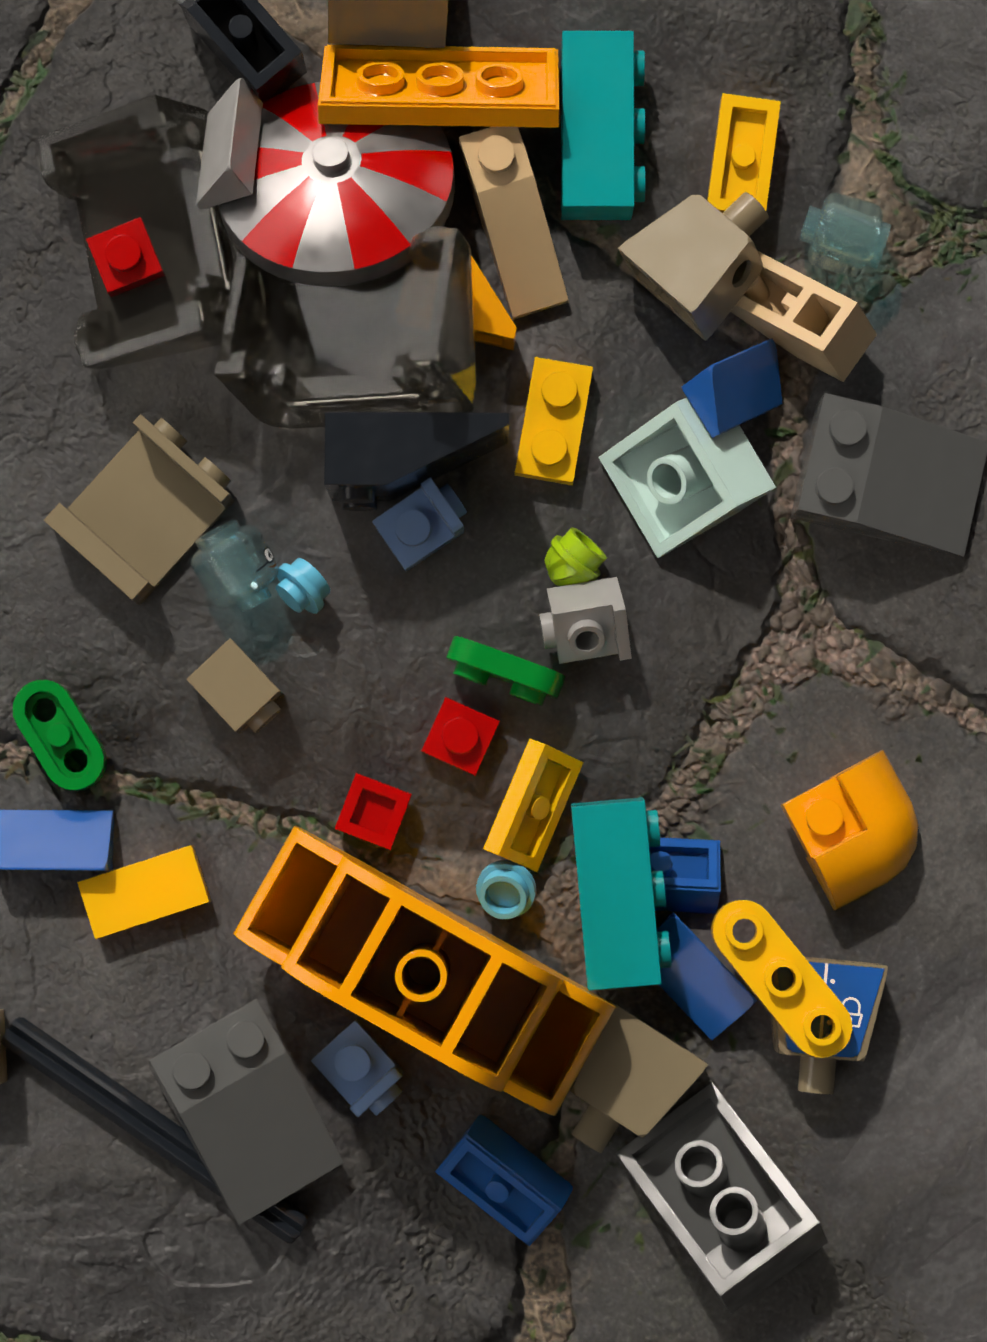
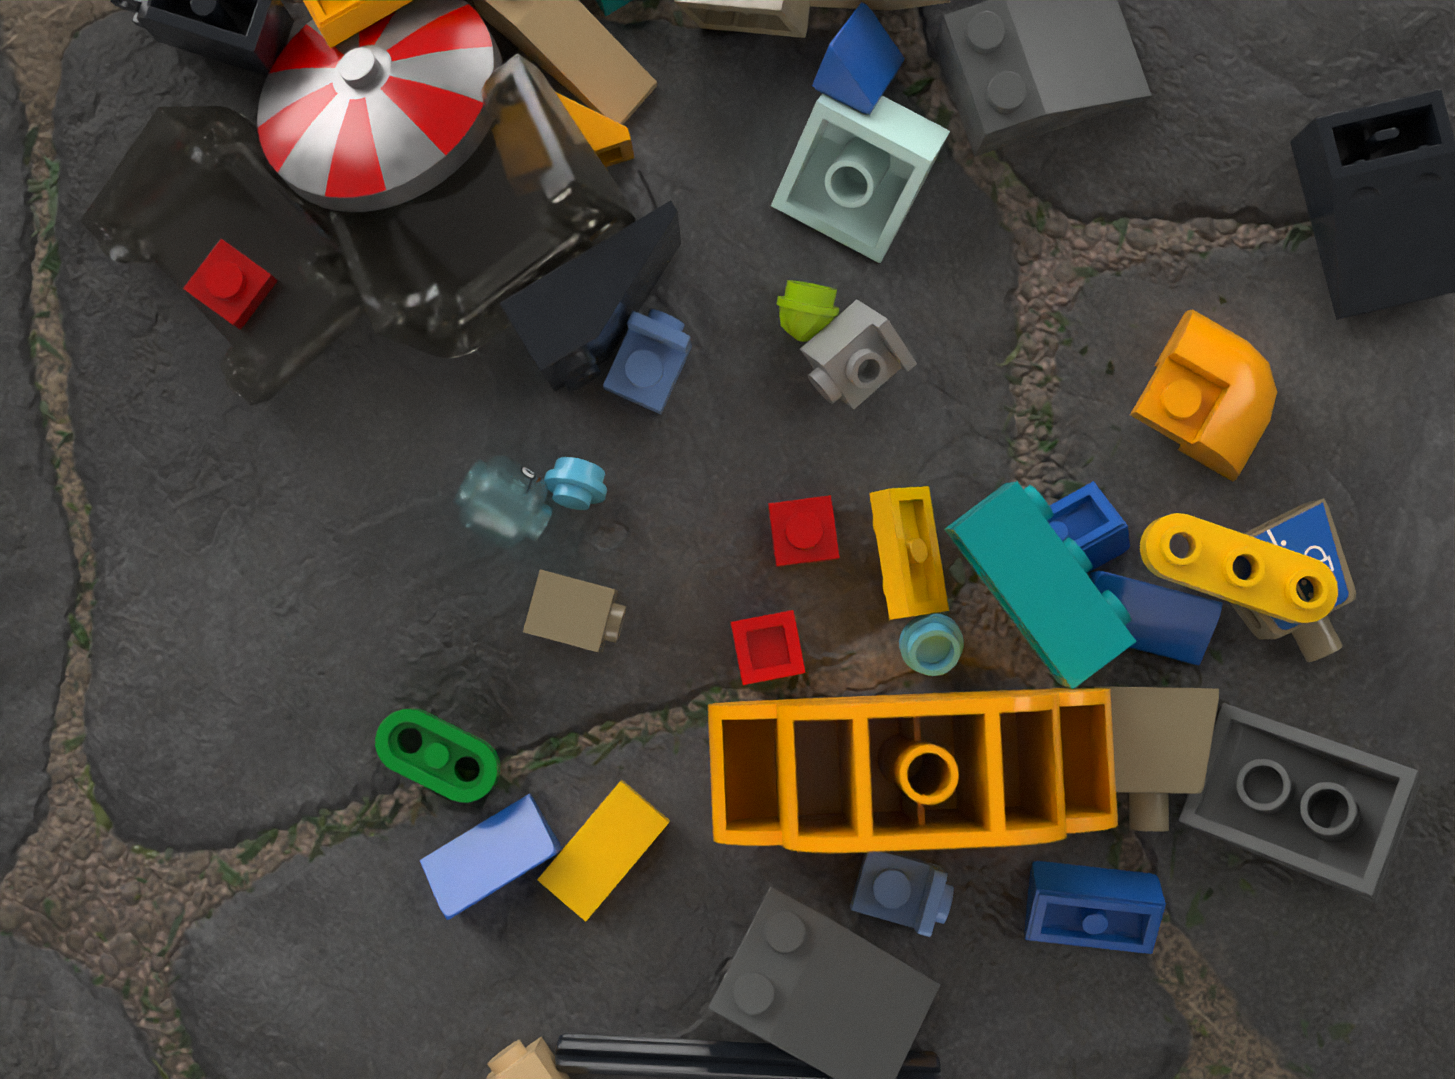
camera: 30 degrees left, 0 degrees up
(144, 509) = (389, 501): dark tan panel -> none
(230, 147) = (262, 119): light grey slope -> none
(528, 680) = (834, 440): green plate -> none
(553, 421) = (710, 197): yellow plate -> none

